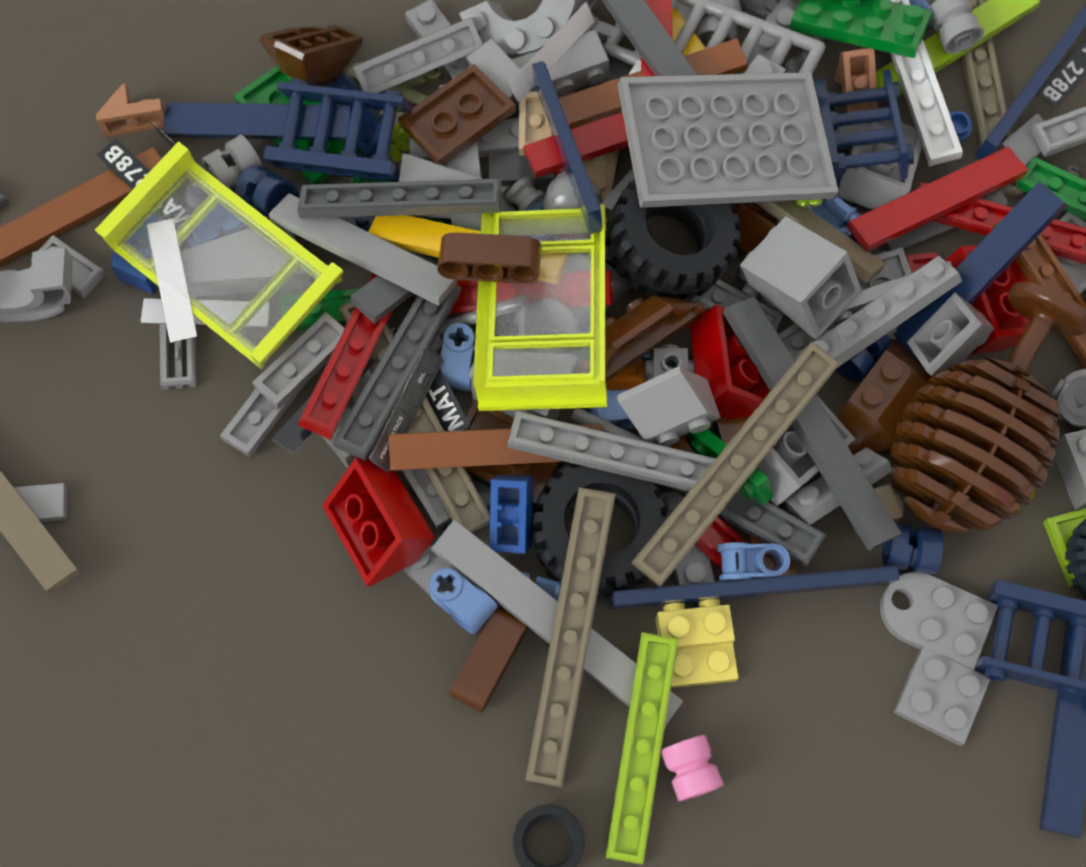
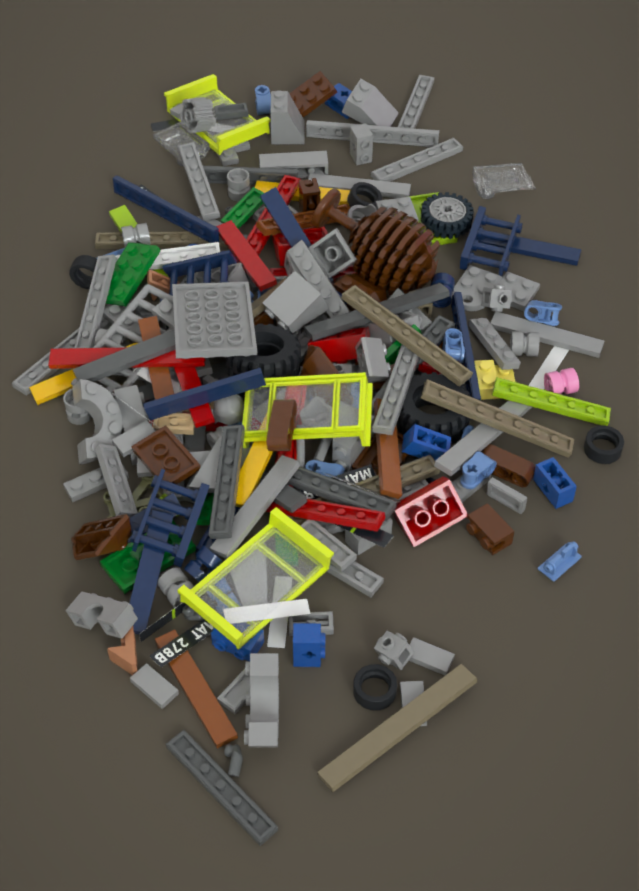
camera: 85 degrees left, 20 degrees down
(37, 428) = (375, 671): none -> black tyre
(78, 156) = (154, 686): none -> light grey tile
(108, 468) = (393, 650): none -> light grey brick
(110, 527) = (431, 656): none -> light grey tile
(115, 341) = (308, 645): none -> blue brick
(194, 60) = (113, 616): none -> light grey arch
(285, 743) = (560, 561): none -> medium blue hinge
(347, 623) = (490, 529): none -> reddish brown brick
(420, 655) = (506, 495): none -> light grey tile
(443, 738) = (554, 482): none -> blue brick
(743, 751) = (549, 365): none -> white sticker
(782, 645) = (494, 344): none -> light grey plate
(786, 701) = (524, 343): none -> light grey wheel
(828, 754) = (549, 334): none -> light grey tile
(879, 738) = (544, 312): none -> medium blue piece
(899, 651) = (497, 298): none -> light grey brick

